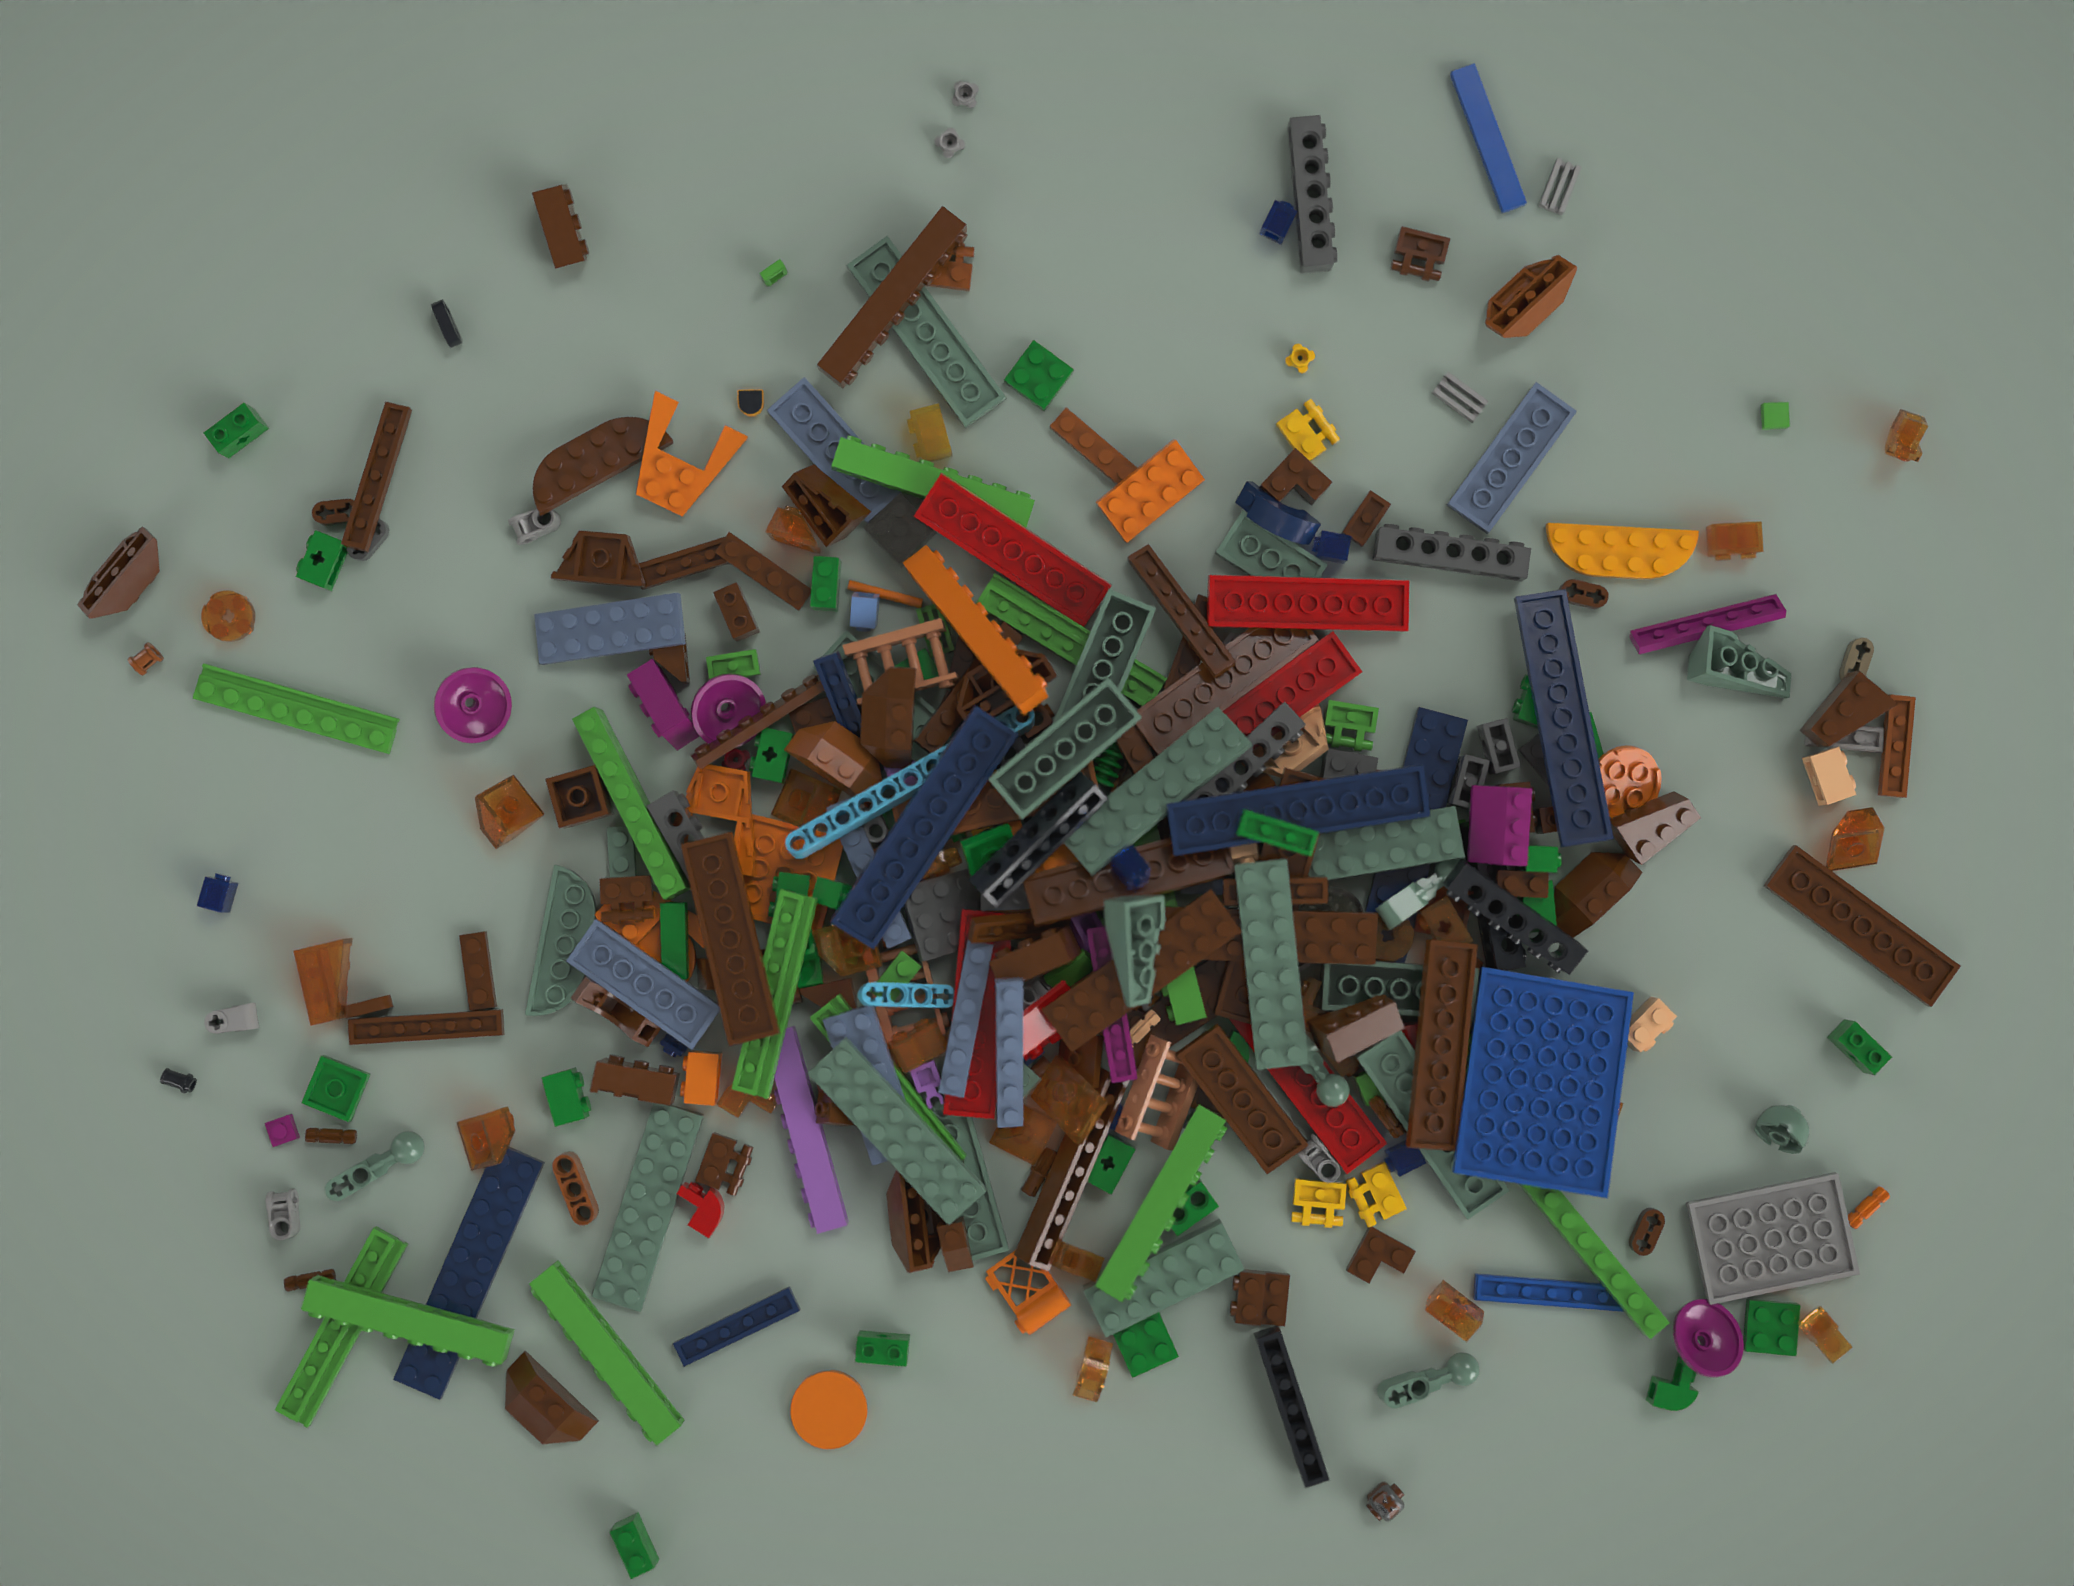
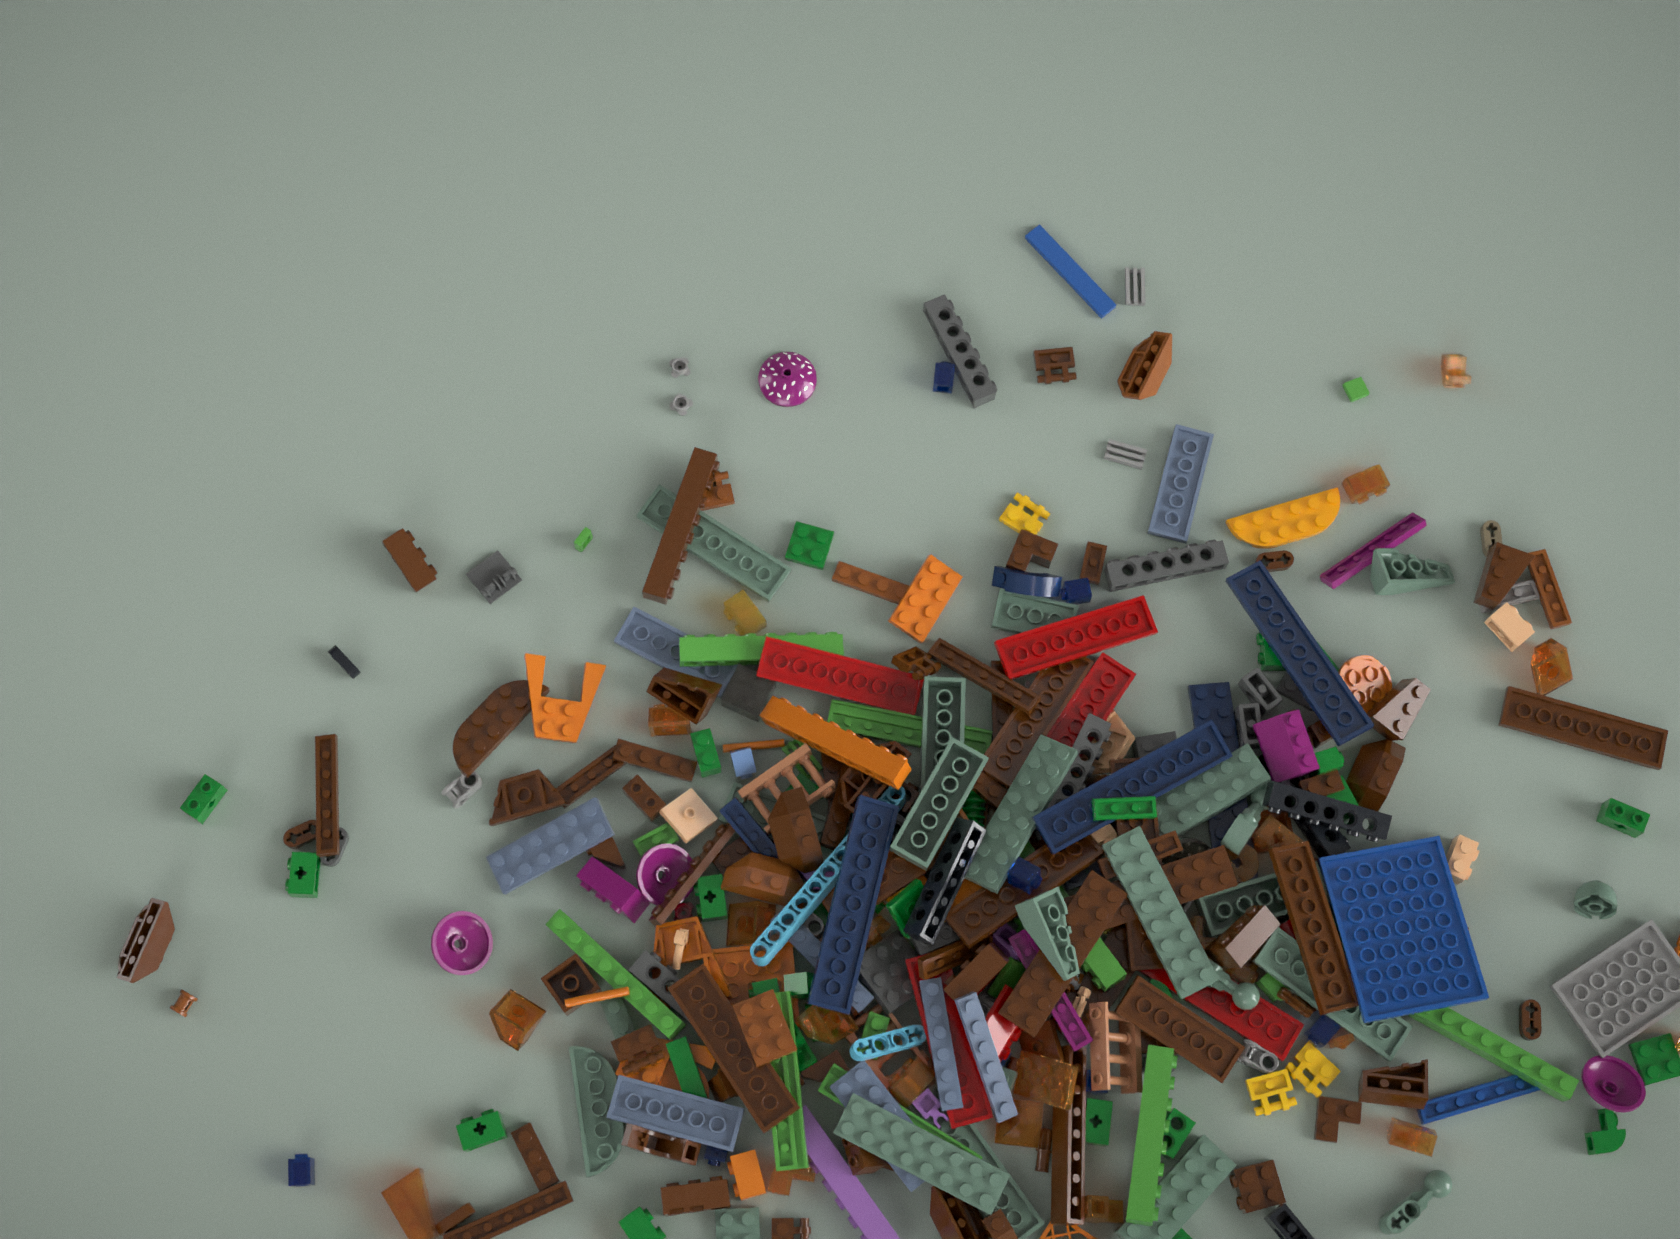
camera: 20 degrees left, 15 degrees down
(217, 606) = (230, 940): clear orange plate -> none
(296, 708) = (318, 999): bright green plate -> none
(413, 925) = (472, 1140): none -> green brick
(599, 824) = (599, 996): none -> orange bar
(654, 281) = (494, 577): none -> dark grey hinge
(716, 793) = (680, 940): none -> light nougat bar
(751, 402) = (598, 639): black tile -> none
(771, 931) = (764, 1028): none -> dark orange plate
(780, 650) = (688, 815): none -> light nougat plate
(1085, 170) = (783, 389): none -> magenta dish
(1103, 562) = (917, 662): none -> reddish brown plate
(1307, 356) = (1002, 463): yellow plate -> none
(1350, 717) = (1143, 710): bright green plate -> none
(1422, 1177) = (1341, 1042): none -> clear orange tile
(1462, 1249) = (1396, 1085): none -> reddish brown wedge

